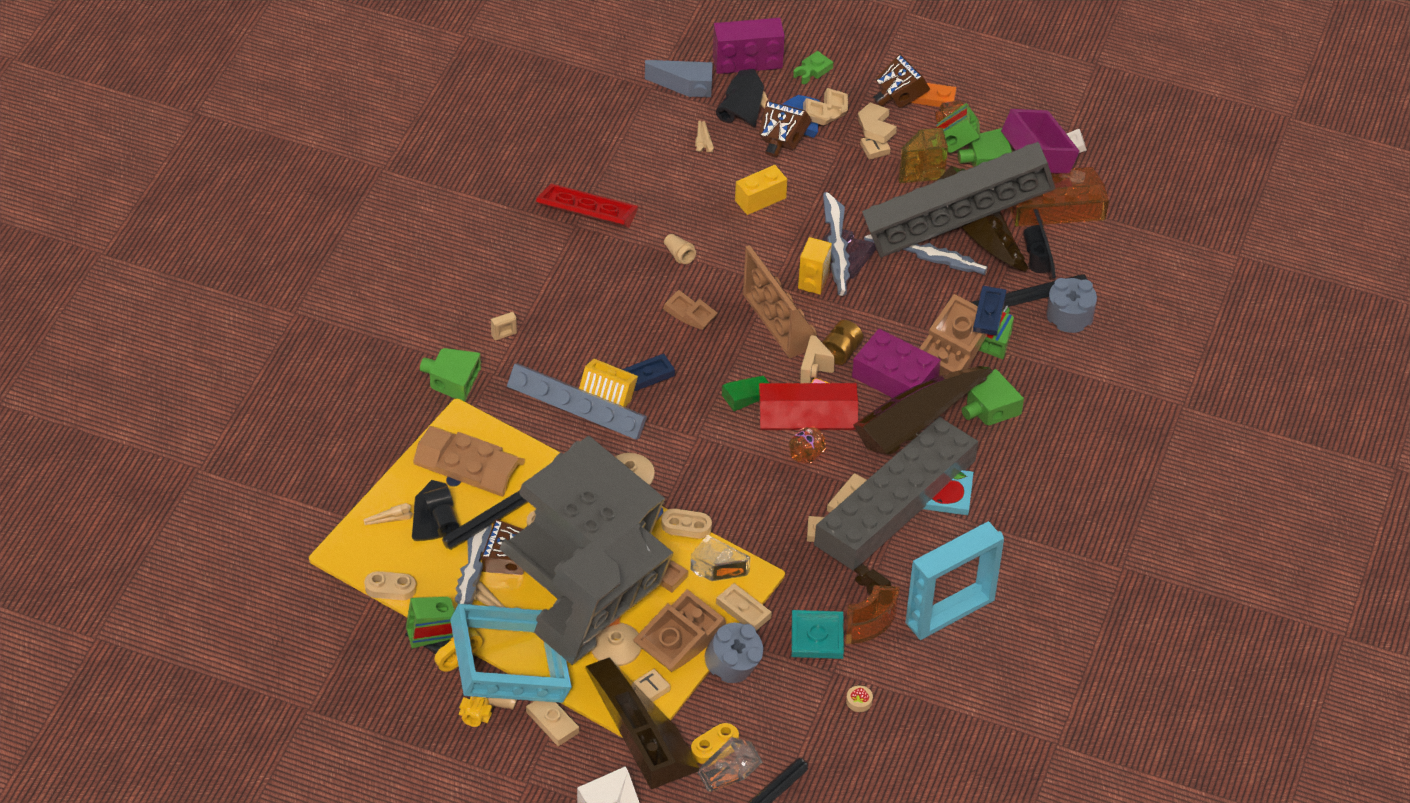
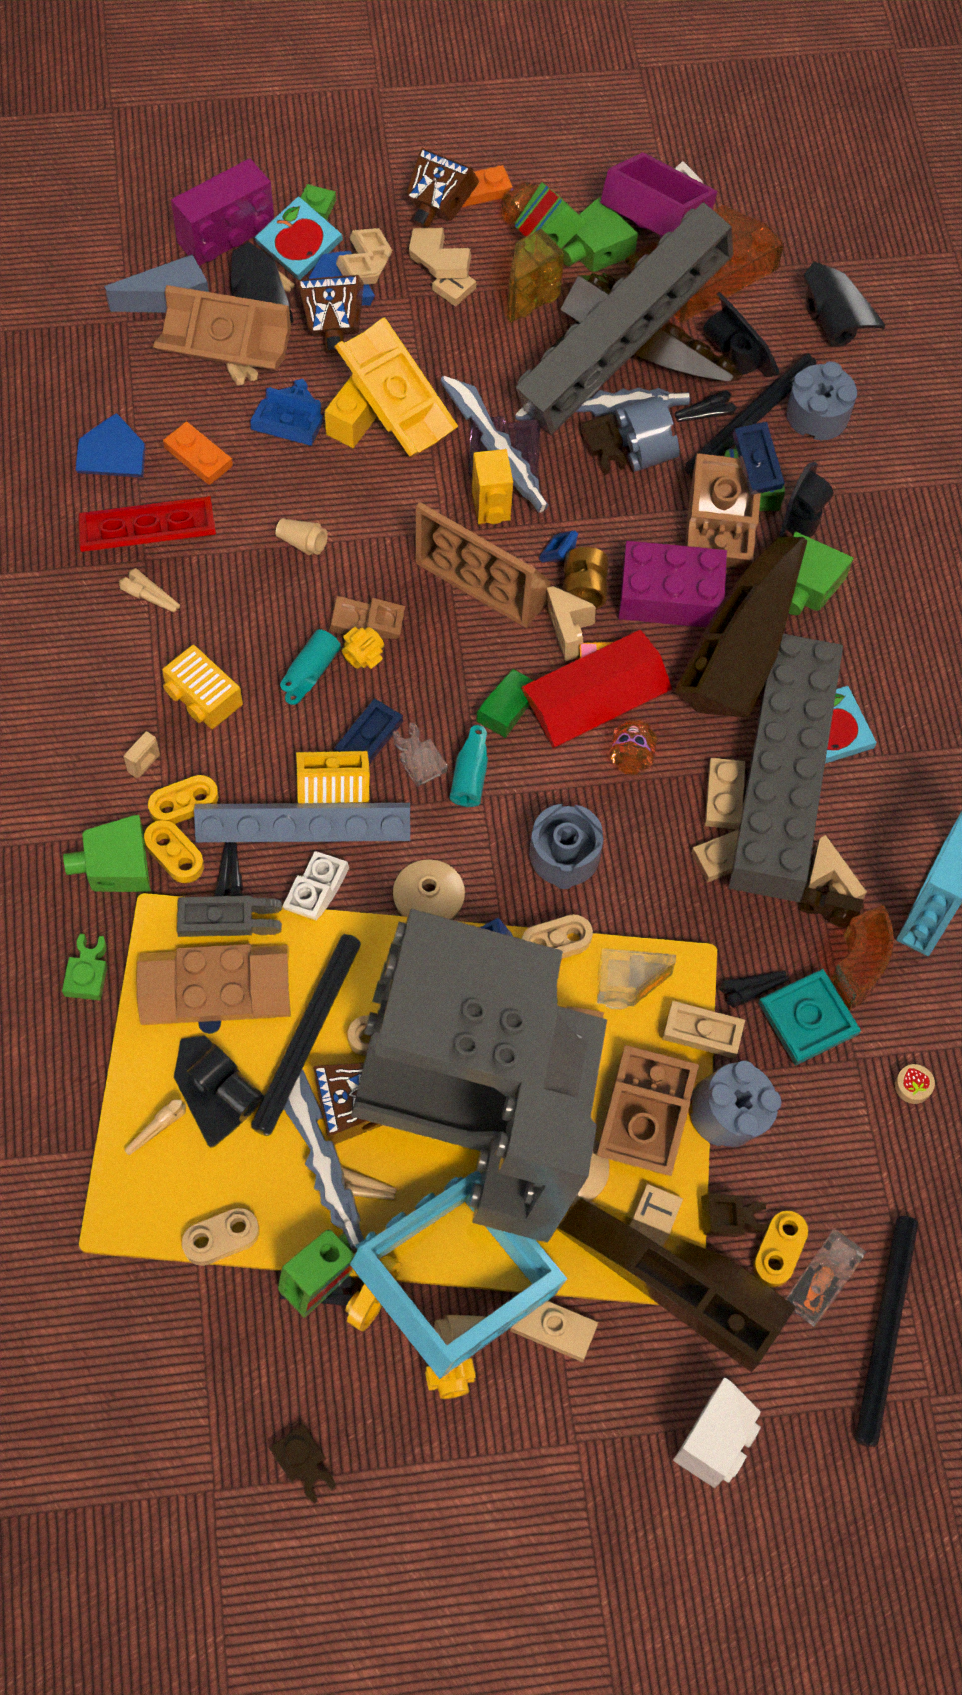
camera: 30 degrees left, 15 degrees up
(365, 716) = (300, 1458): none -> dark brown plate
(399, 427) = (86, 974): none -> bright green plate
(491, 389) = (175, 853): none -> yellow plate
(498, 428) = (226, 916): none -> dark grey hinge
(504, 359) = (182, 798): none -> yellow plate
(516, 412) = (229, 875): none -> black piece
(560, 440) = (317, 887): none -> white slope
(563, 305) = (201, 687): none -> yellow brick
(565, 241) = (144, 588): none -> tan piece
(592, 156) = (111, 450): none -> blue slope
(636, 320) = (309, 665): none -> teal piece
(646, 178) = (197, 453): none -> orange plate
(672, 398) = (419, 759): none -> clear plate
(675, 323) = (363, 647): none -> yellow gear
(692, 708) = (727, 1217): none -> dark brown plate
(697, 416) = (470, 770): none -> teal piece
(706, 113) = (225, 328): none -> medium nougat piece
(717, 179) = (289, 414): none -> blue slope
(727, 478) = (566, 845): none -> sand blue brick
(787, 604) = (750, 987): none -> black piece
(789, 187) = (396, 388): none -> yellow piece
(790, 79) = (298, 238): none -> tile
(830, 323) = (559, 547): none -> blue slope
(883, 561) = (831, 870): none -> tan slope
(910, 271) = (604, 438): none -> dark brown plate
(937, 275) = (647, 432): none -> sand blue brick
(997, 281) = (711, 407): none -> black piece
(1010, 353) = (806, 503): none -> black panel
(1126, 253) = (838, 304): none -> black panel

